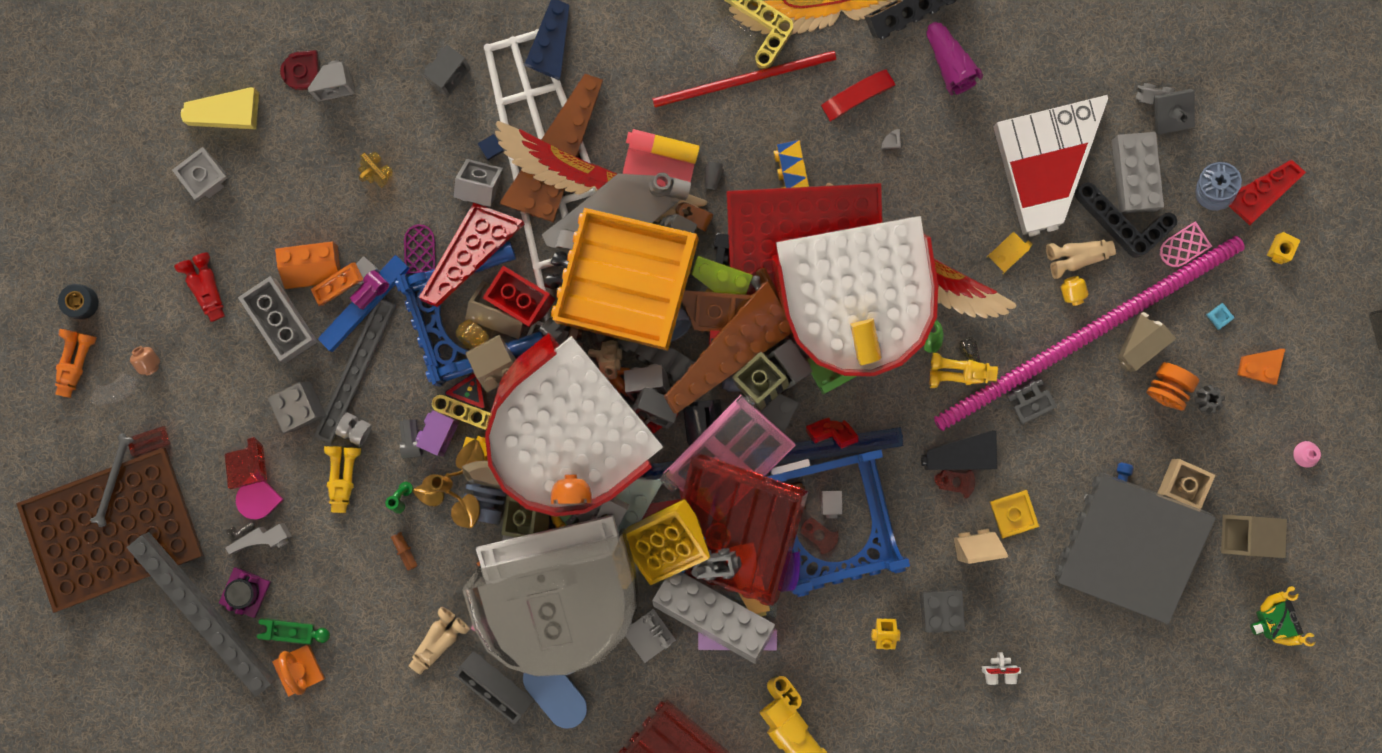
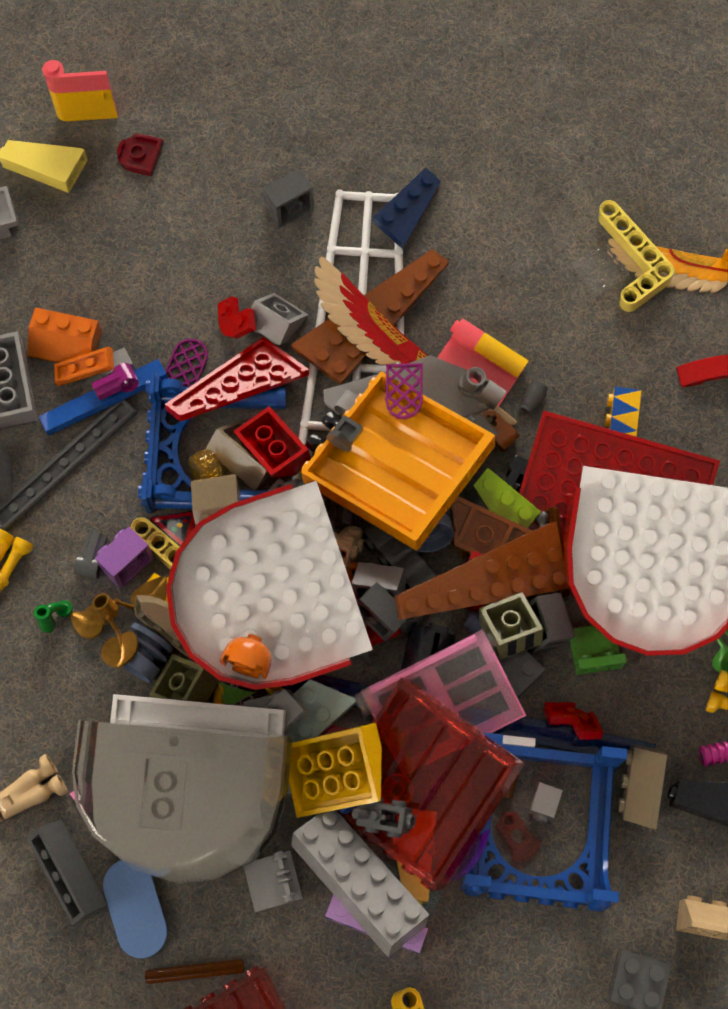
camera: 20 degrees right, 15 degrees down
(229, 41) = (79, 94): none -> door
(332, 82) = (165, 170): light grey slope -> none
(352, 428) = (35, 522): light grey wheel -> none
(370, 170) = (168, 269): clear yellow hips -> none
(404, 551) = (32, 676): dark orange axle -> none
(443, 200) = (232, 322): none -> red plate
(490, 147) = (304, 289): dark blue tile -> none
(575, 274) = (345, 434): none -> dark grey tile
(610, 223) = (404, 395): none -> magenta window
(616, 721) = (194, 971): none -> reddish brown axle
(743, 79) = (603, 313): red piece -> none
(866, 341) = (650, 611): yellow brick -> none
(885, 634) = (557, 990): yellow brick -> none
(900, 465) = (642, 785): none -> dark tan slope
(967, 482) = (717, 835): clear red piece -> none

